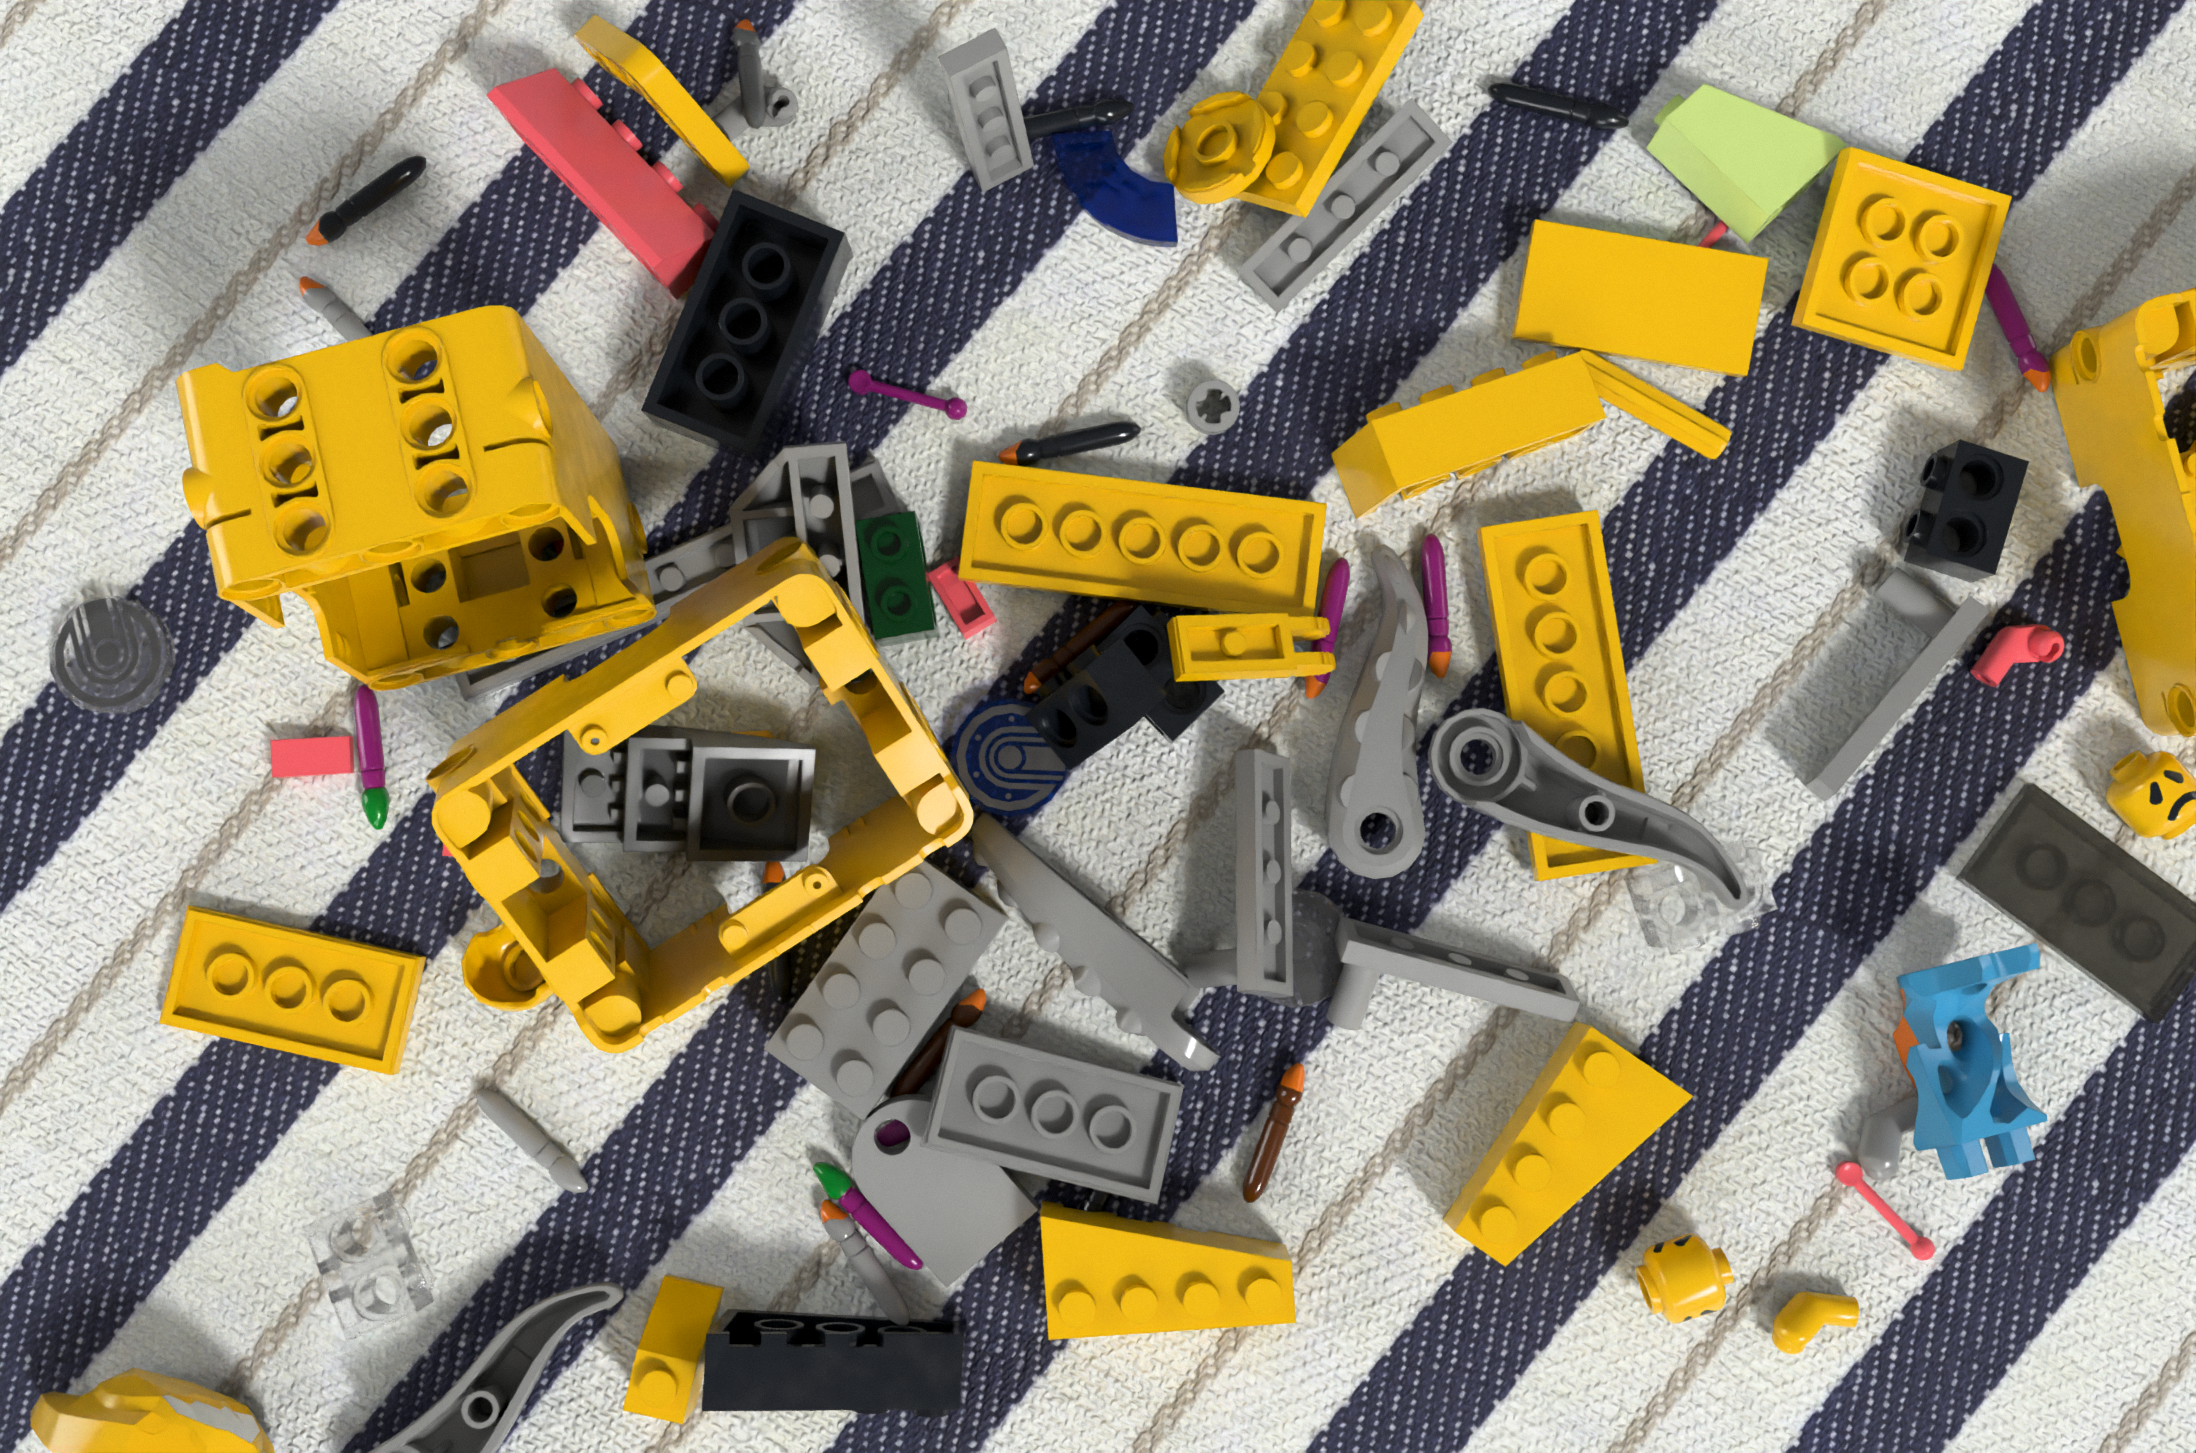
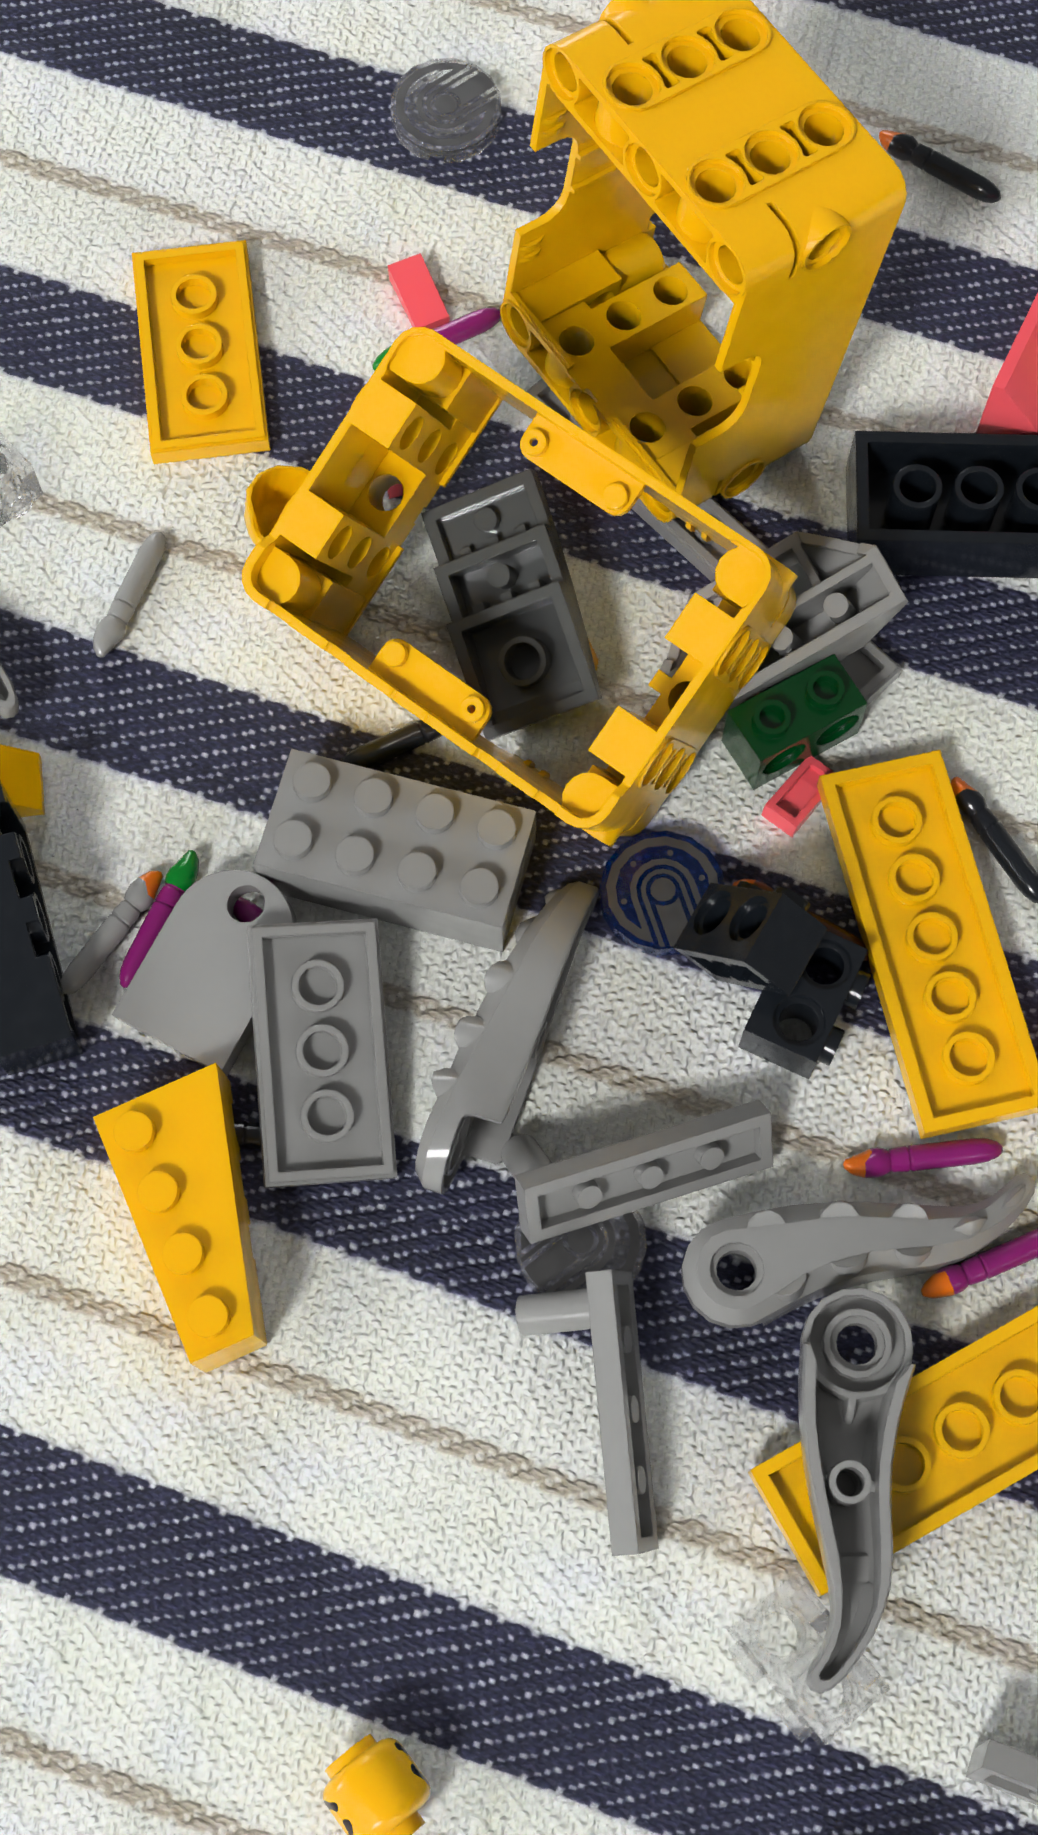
camera: 70 degrees right, 15 degrees down
(862, 384) = (967, 633): magenta hinge -> none
(963, 1015) = (391, 938): reddish brown piece -> none
(1246, 646) = (872, 1069): yellow hinge -> none
(1288, 1094) = (379, 1289): reddish brown piece -> none
(1561, 1141) = (495, 1600): yellow wedge -> none

